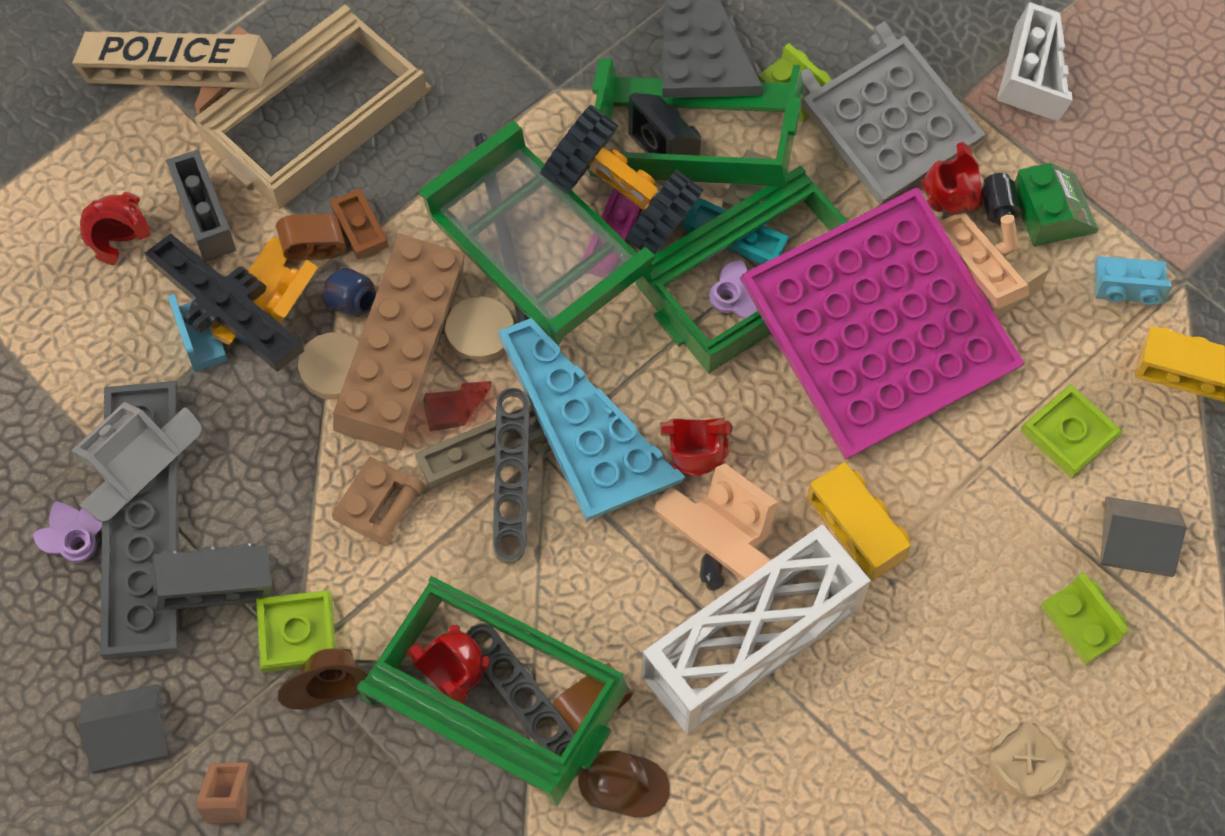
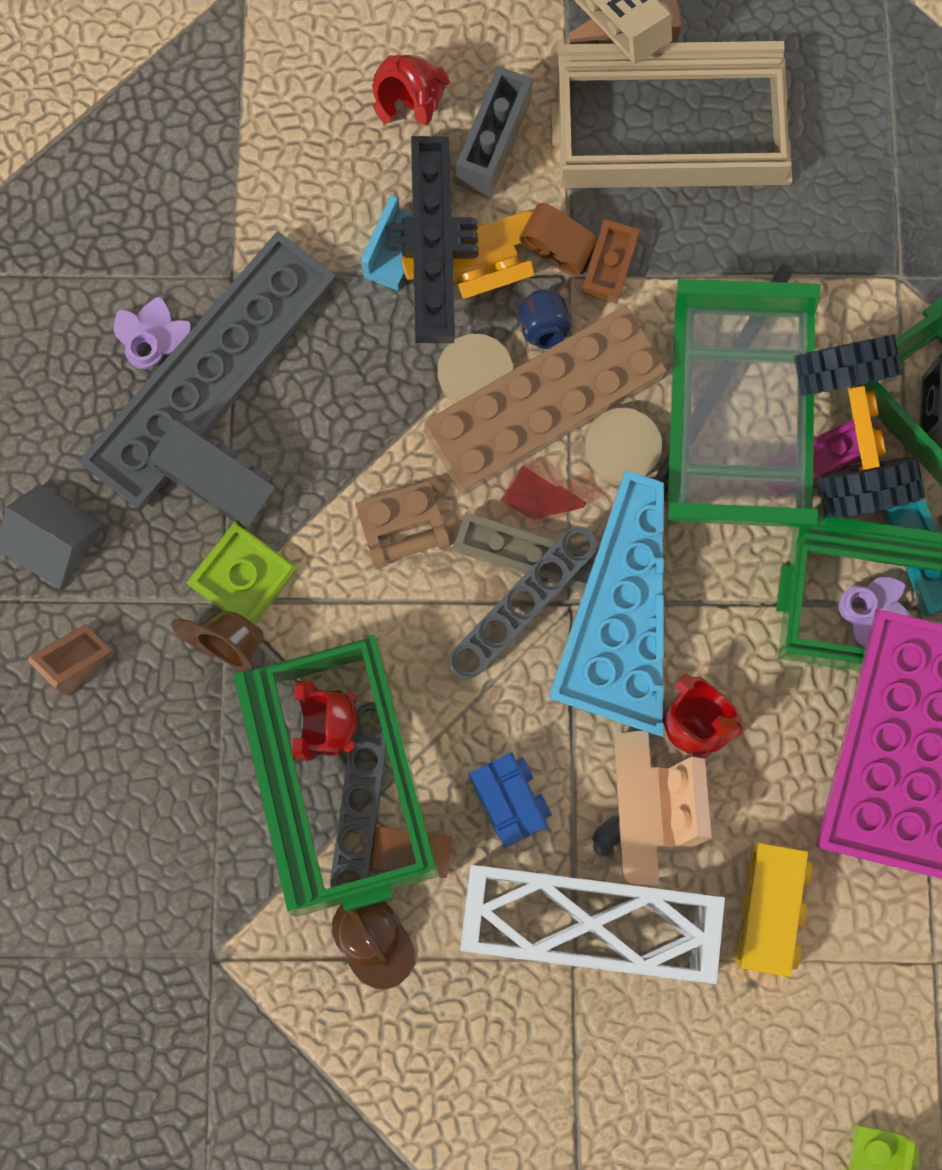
camera: 45 degrees right, 15 degrees up
(130, 453) = (241, 311): light grey plate -> none
(625, 606) = (509, 799): none -> blue brick

